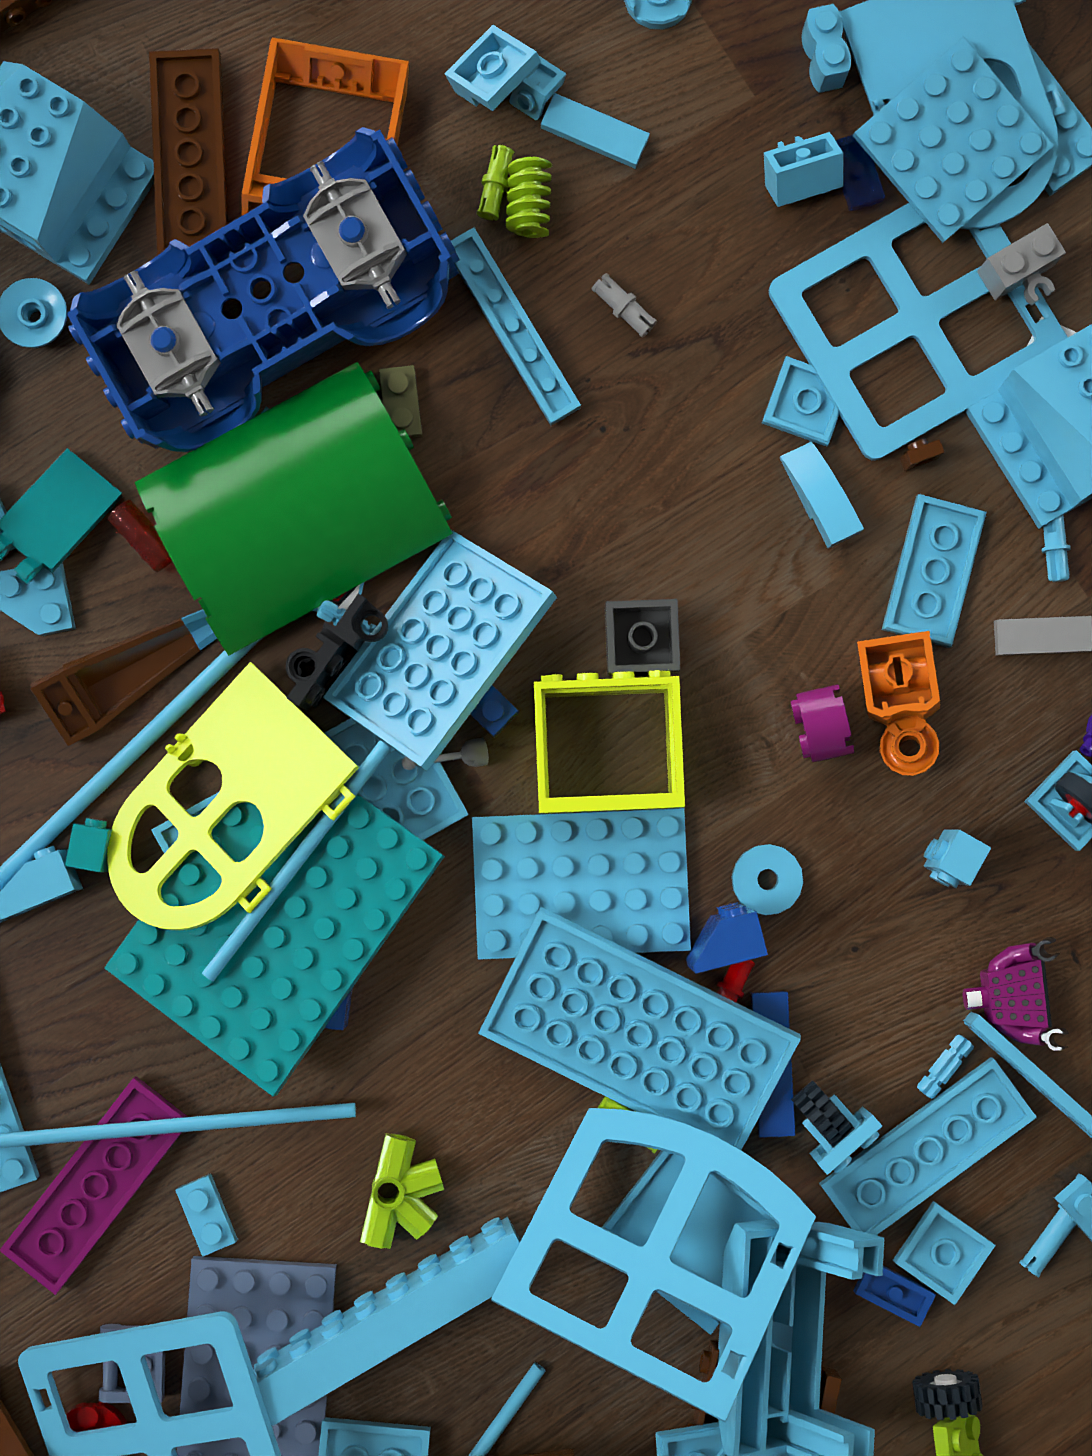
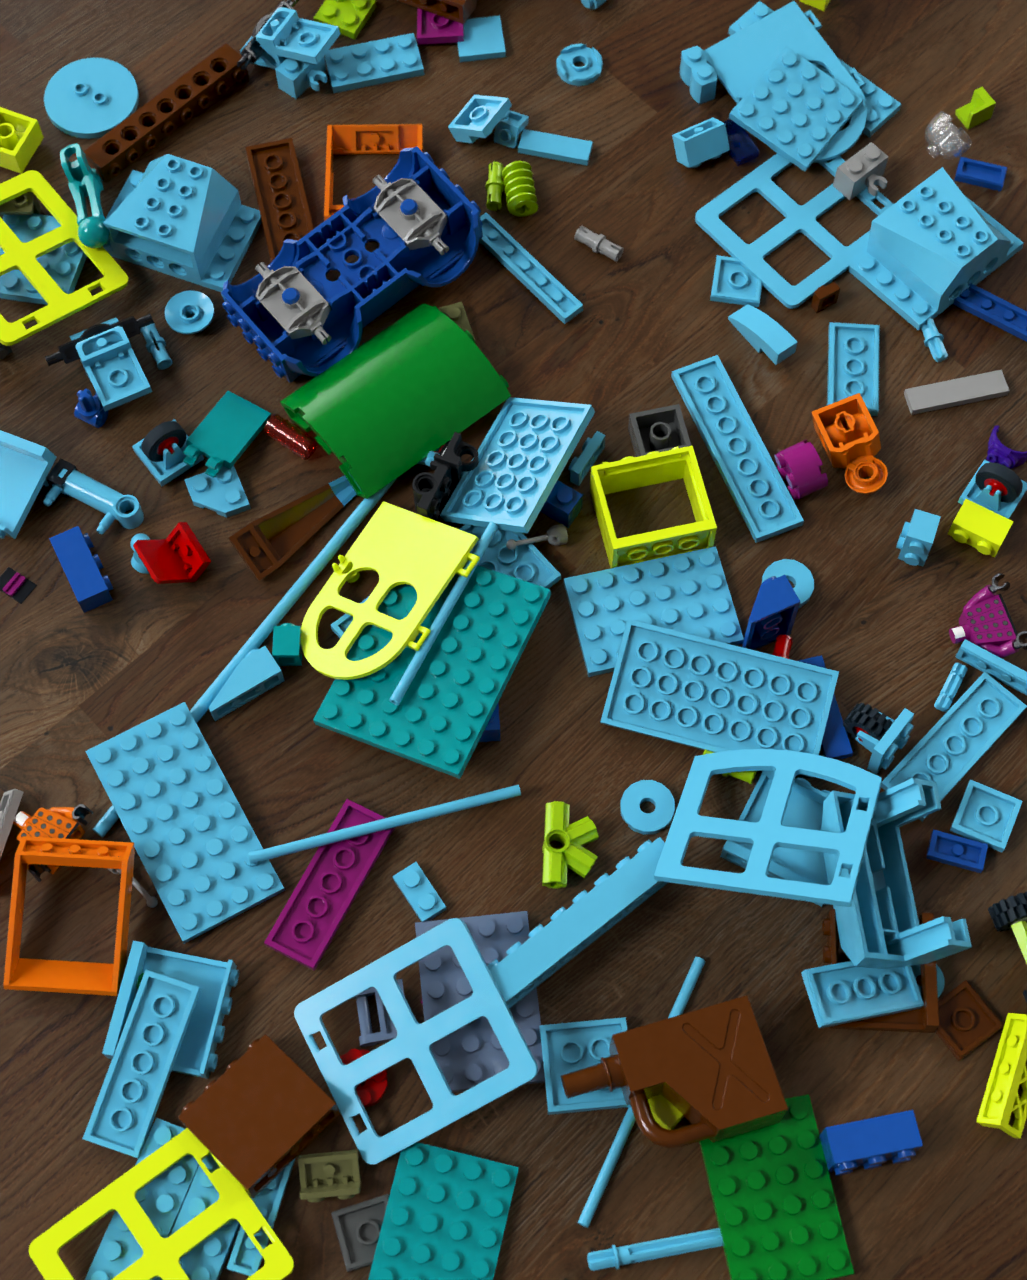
camera: 10 degrees left, 20 degrees down
(516, 1177) = (647, 791): none -> medium azure tile
(547, 633) = (591, 451): none -> medium azure plate
(744, 665) = (737, 449): none -> medium azure plate
(1043, 851) = (980, 528): none -> neon yellow brick

